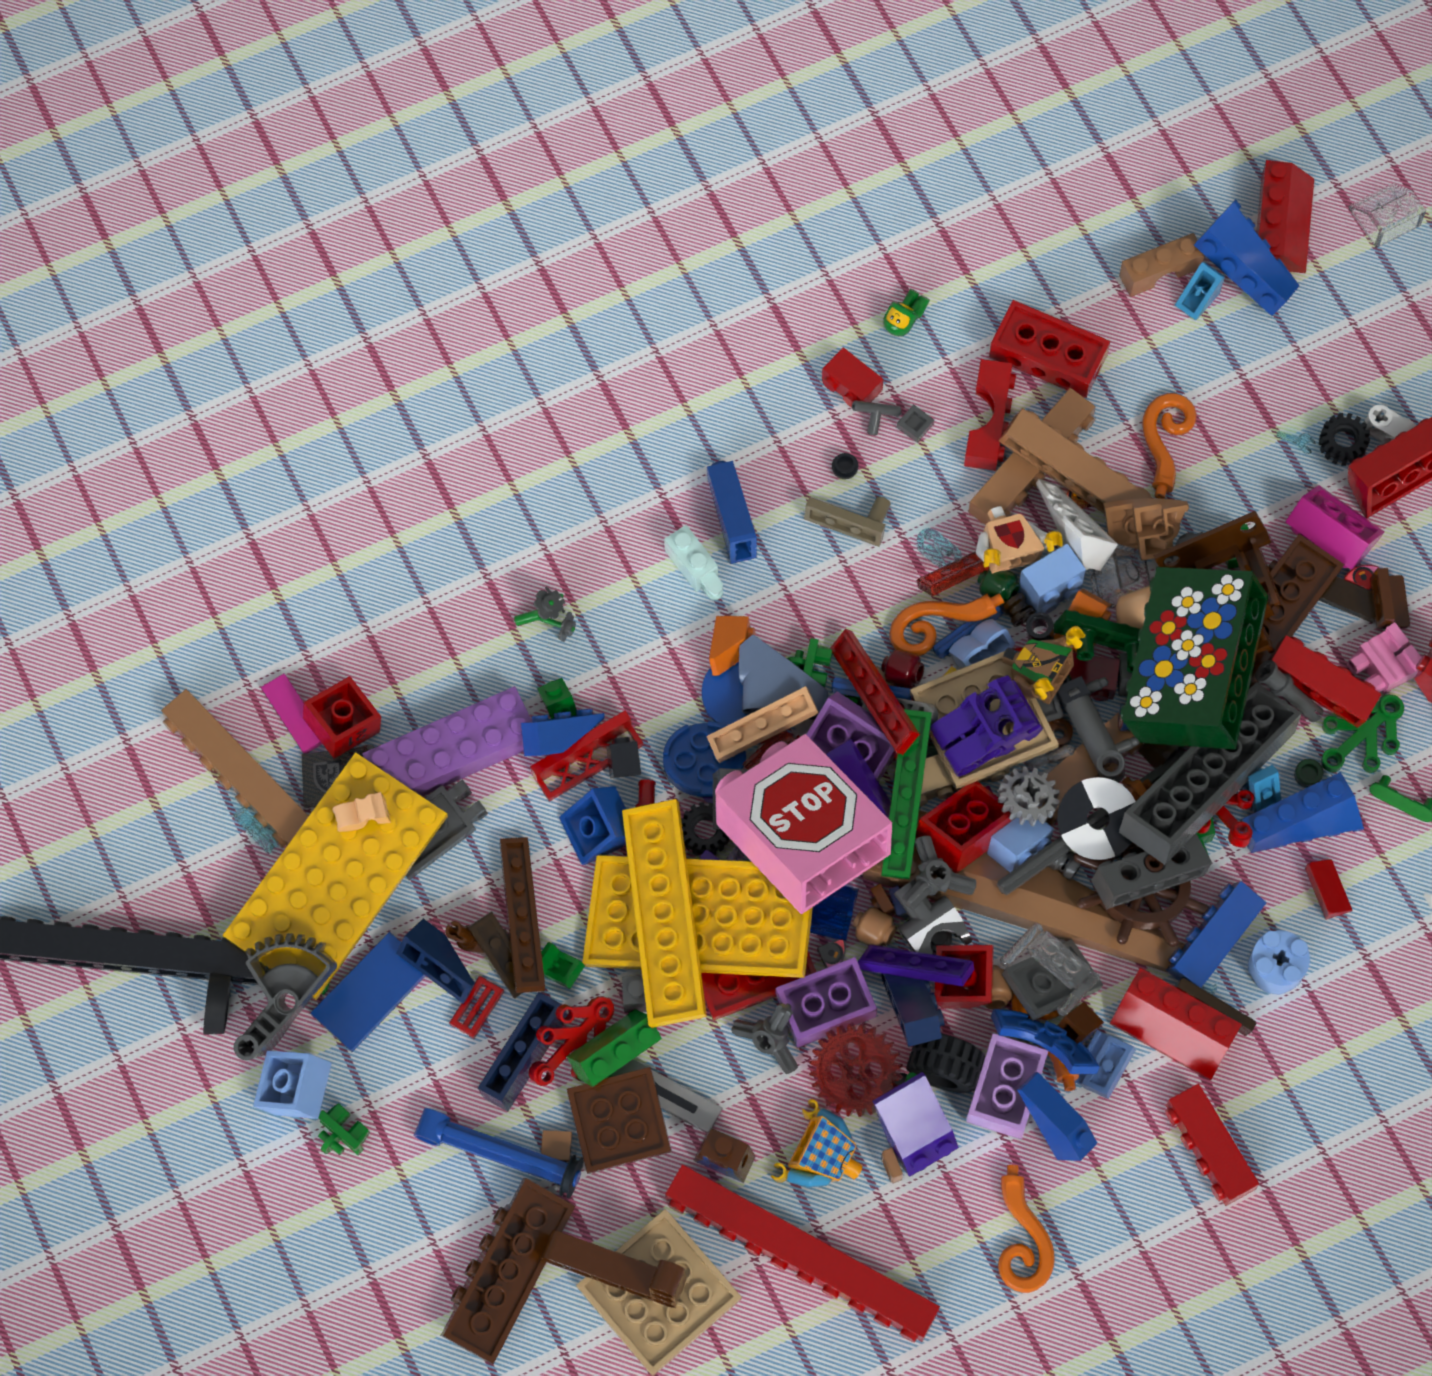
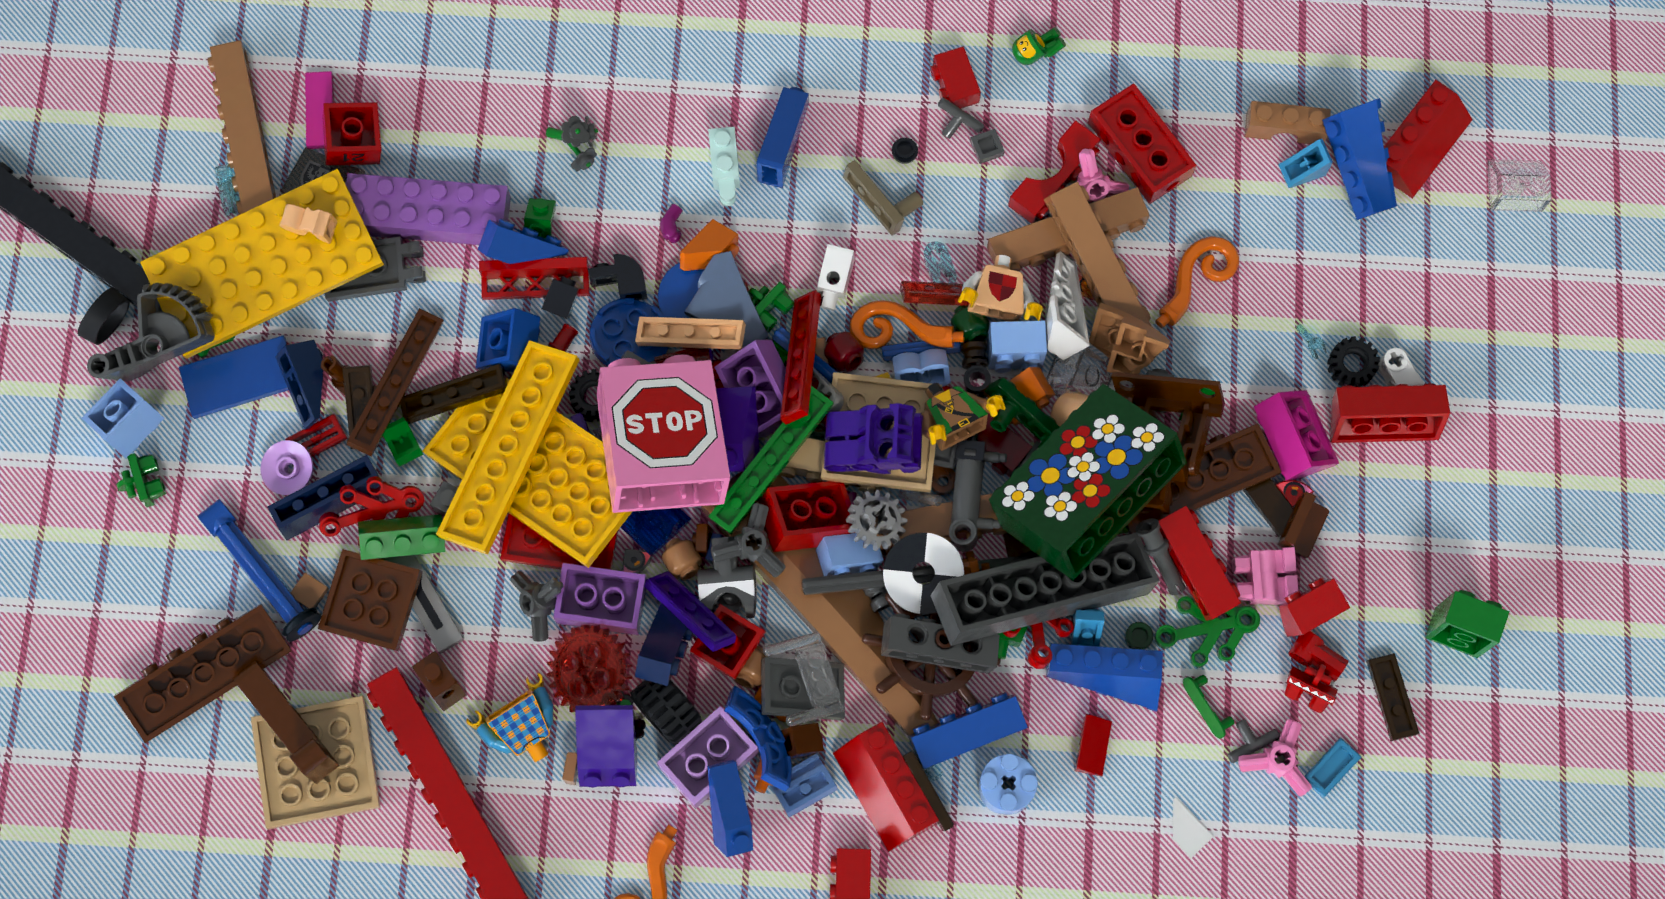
camera: 25 degrees right, 5 degrees up
(454, 1046) = (275, 467): none -> lavender dish
(580, 896) = (454, 394): none -> dark brown tile
(665, 706) = (625, 273): none -> black brick
(676, 644) = (668, 225): none -> magenta arm
(851, 596) = (836, 265): none -> white torso
(1029, 400) = (1094, 181): none -> bright pink bush

